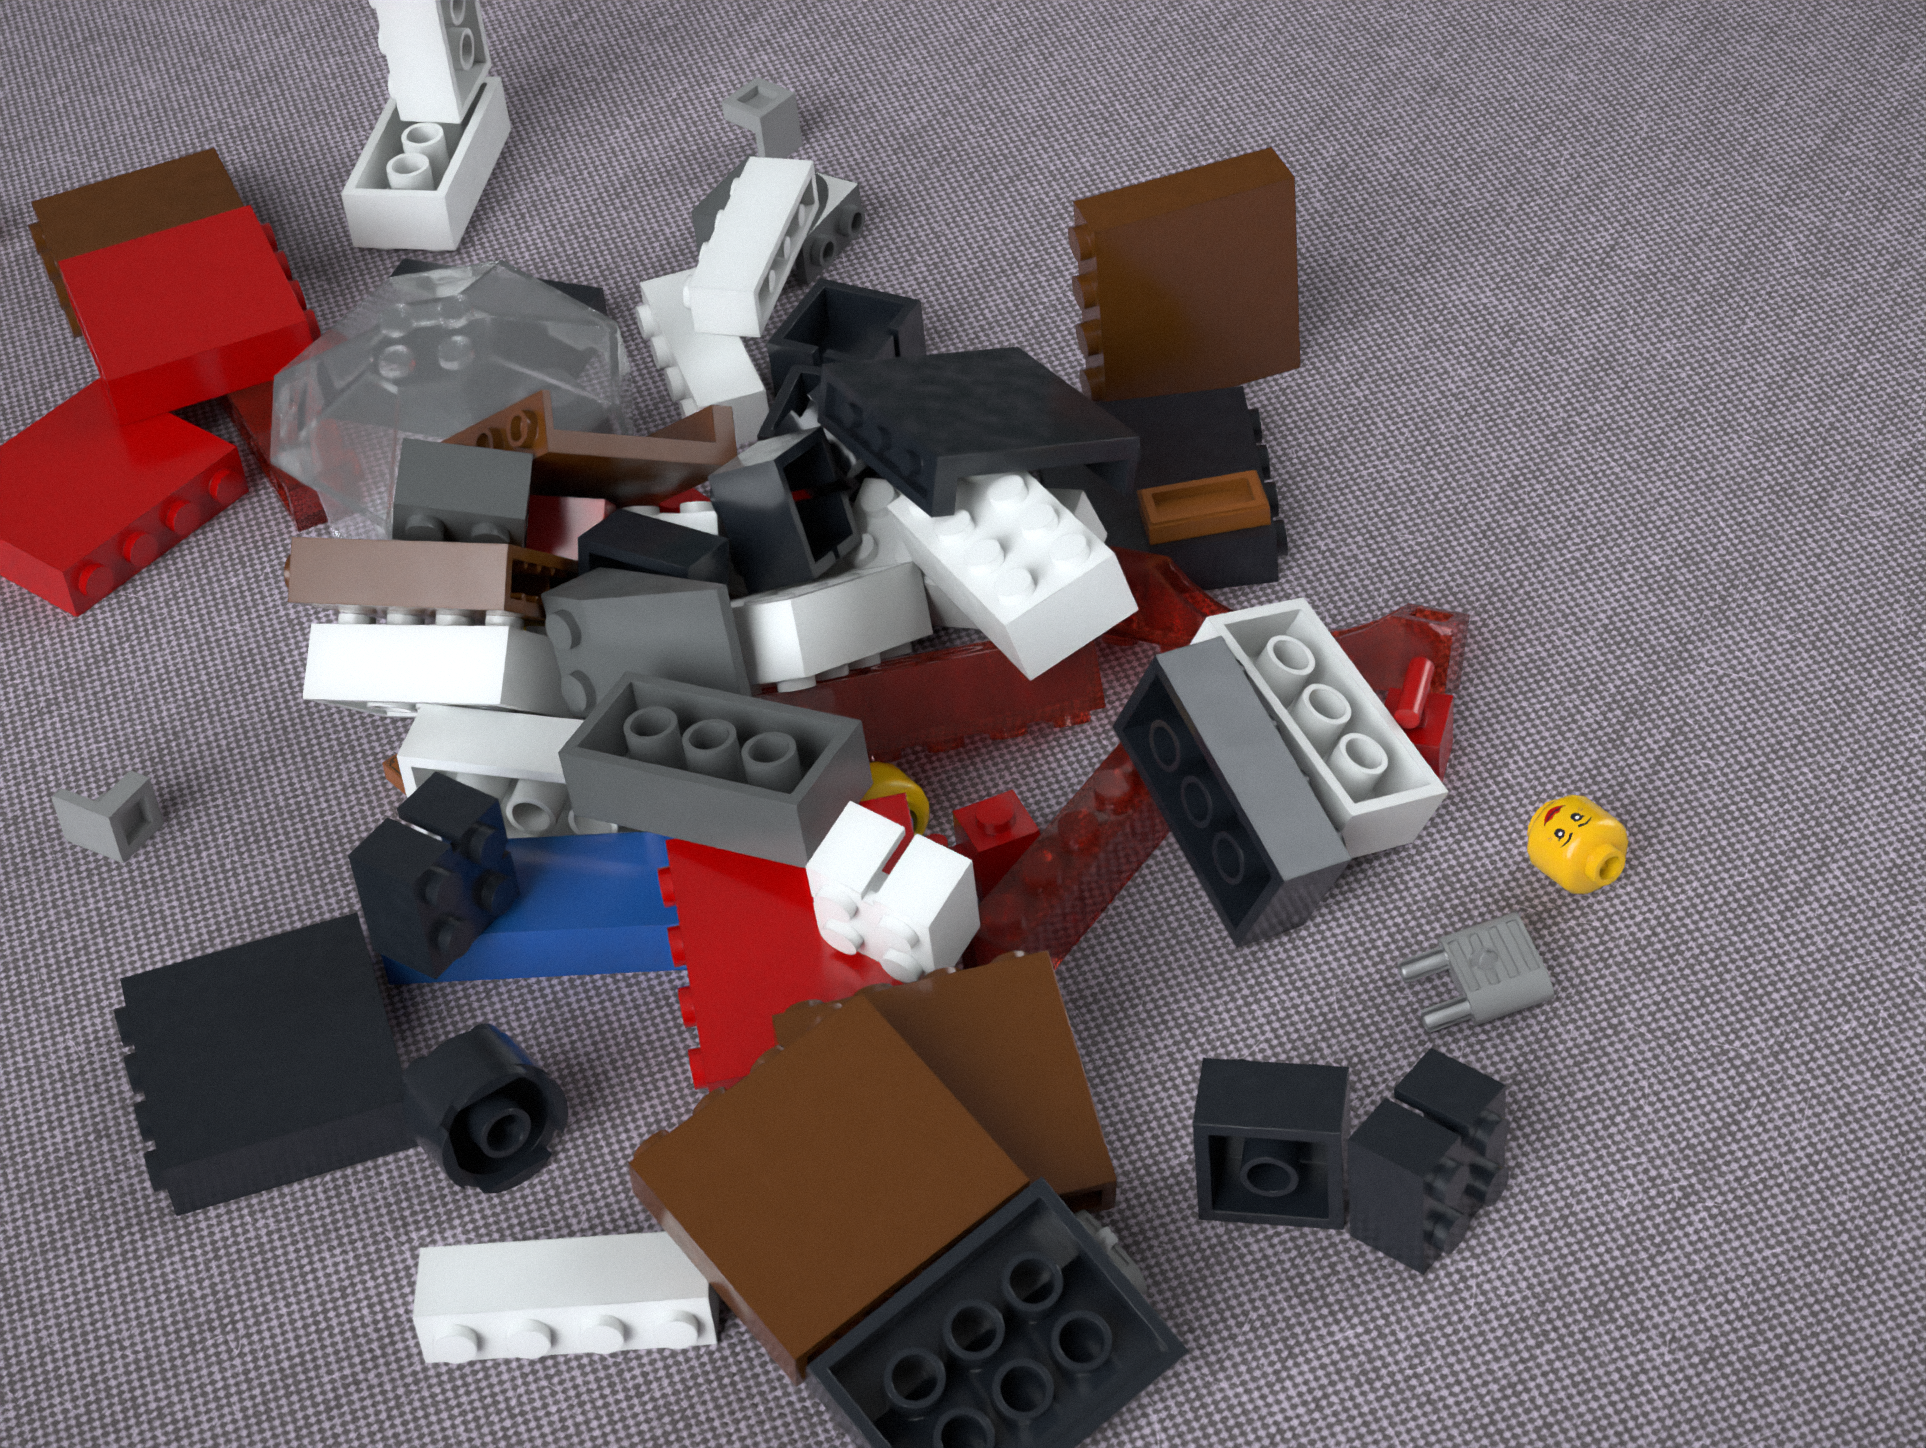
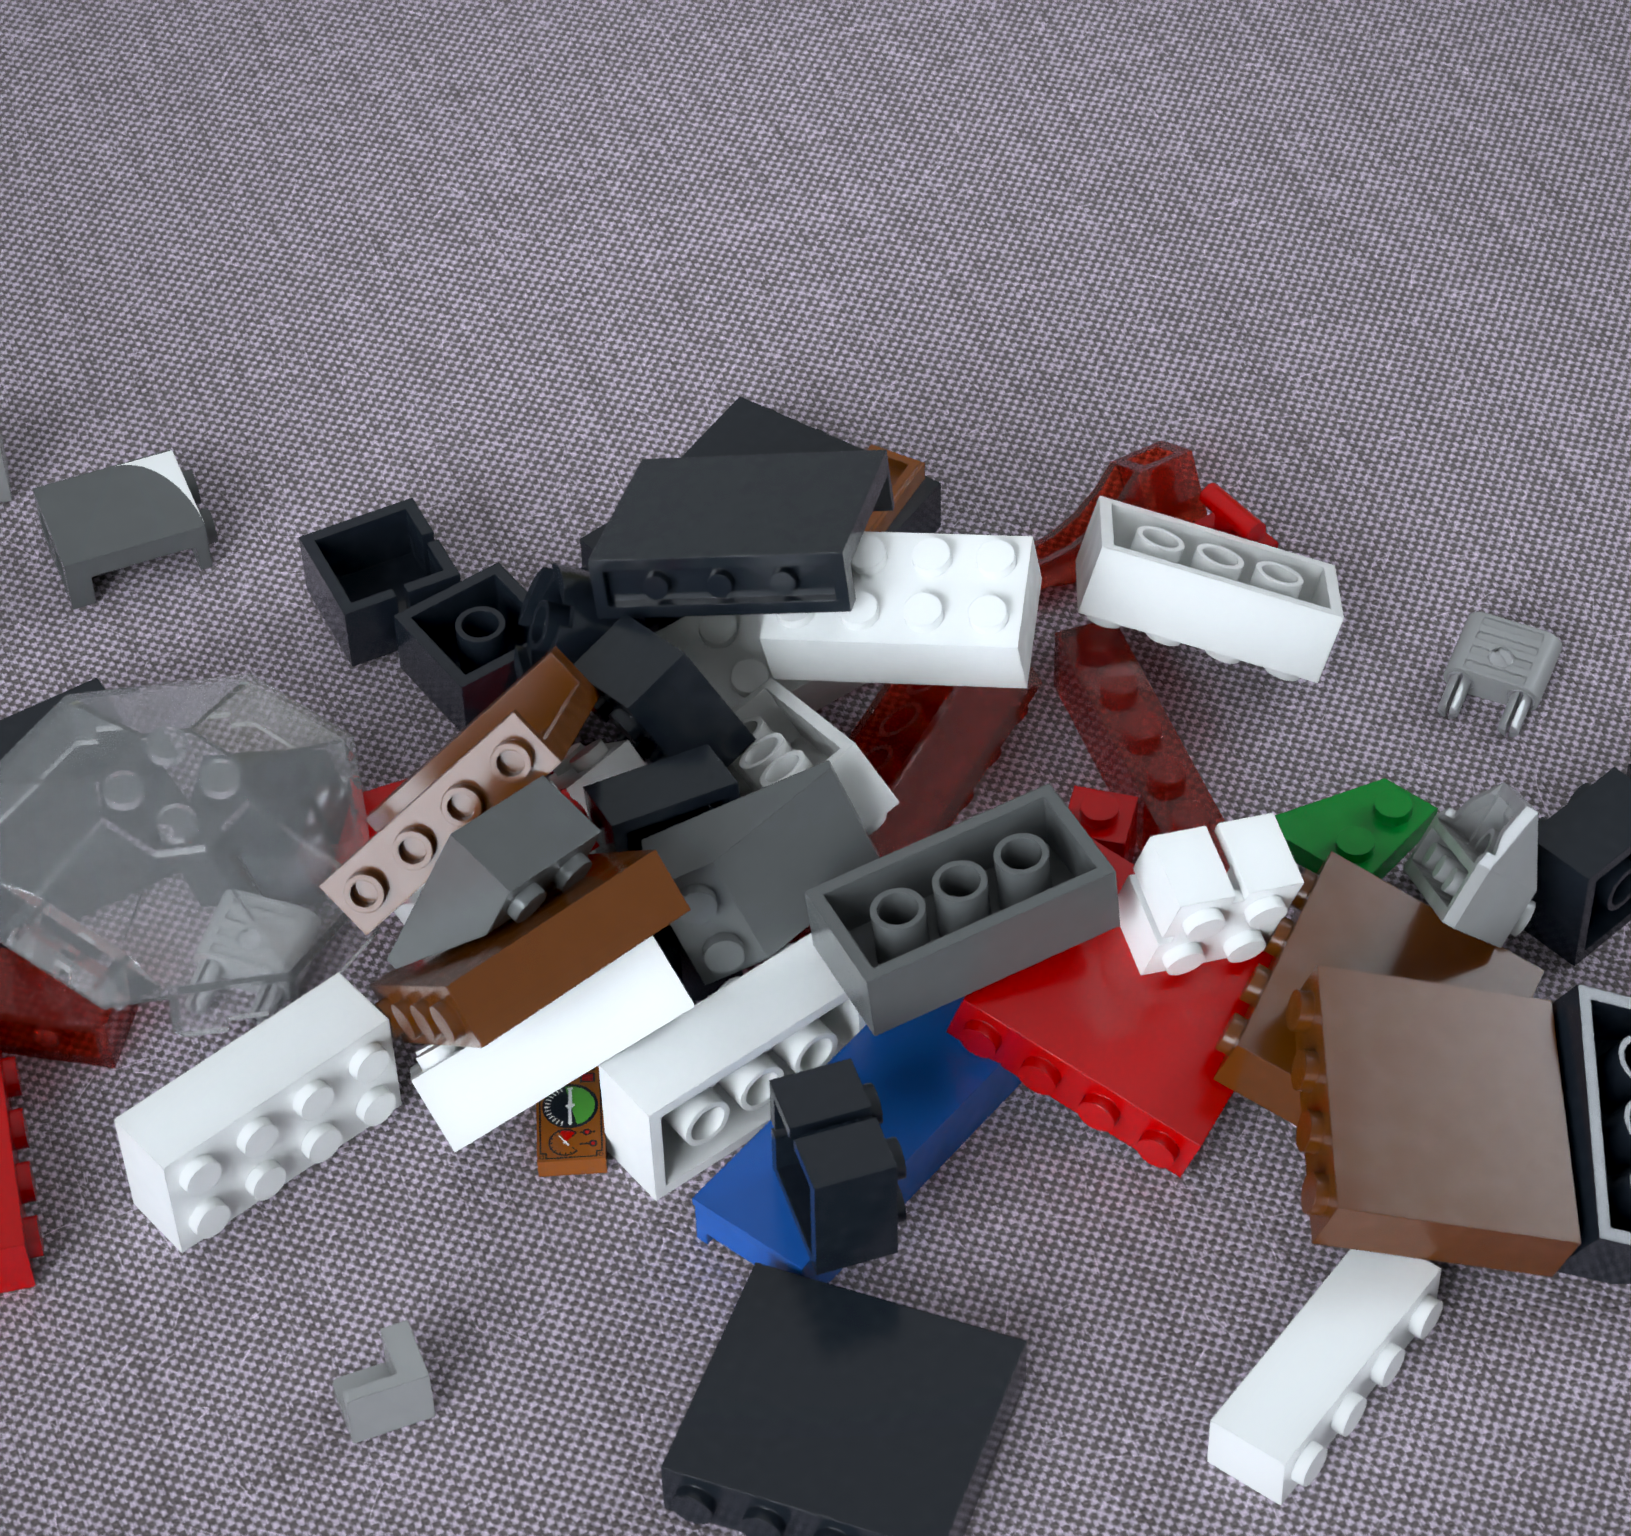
camera: 55 degrees left, 5 degrees up
(224, 596) = (259, 1112): none -> white brick
(483, 1109) = (1081, 1301): black brick -> none
(700, 366) = (193, 645): white brick -> none
(752, 247) = (202, 550): white brick -> none
(1134, 1066) = (1480, 865): none -> light grey wedge
(1188, 280) = (633, 336): reddish brown brick -> none
(1193, 997) = (1364, 825): none -> green wing
(1231, 791) = (1246, 663): black brick -> none
(1577, 844) = (1437, 542): yellow head -> none

